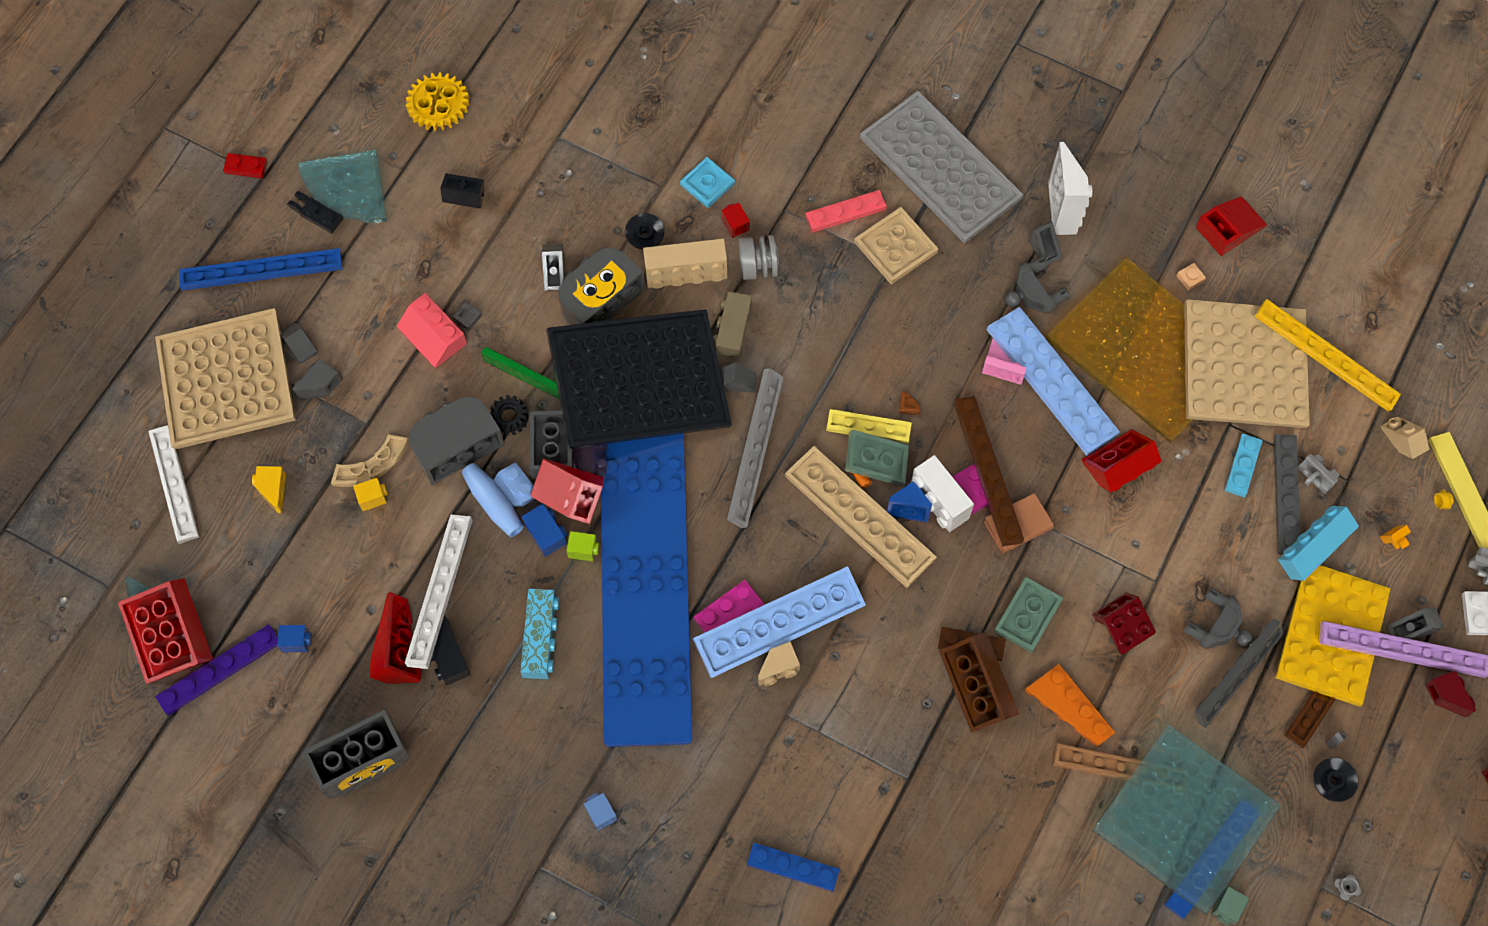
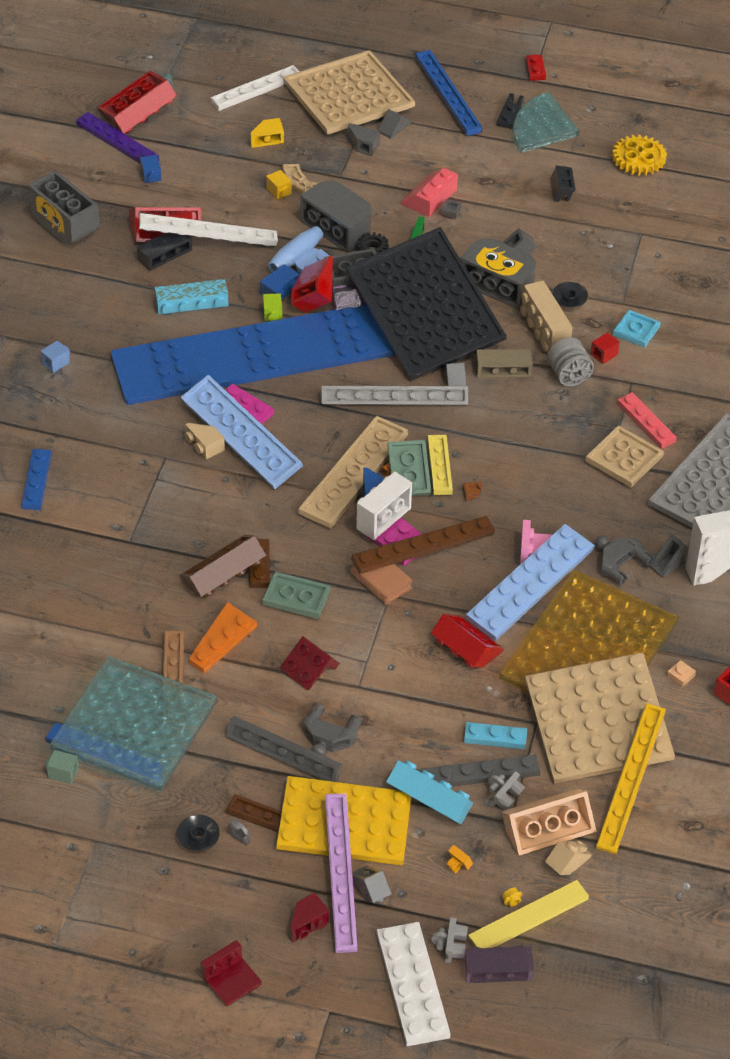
camera: 75 degrees right, 20 degrees down
(1351, 881) = (96, 851): light grey plate -> none
(1359, 443) = (549, 821): none -> light nougat slope

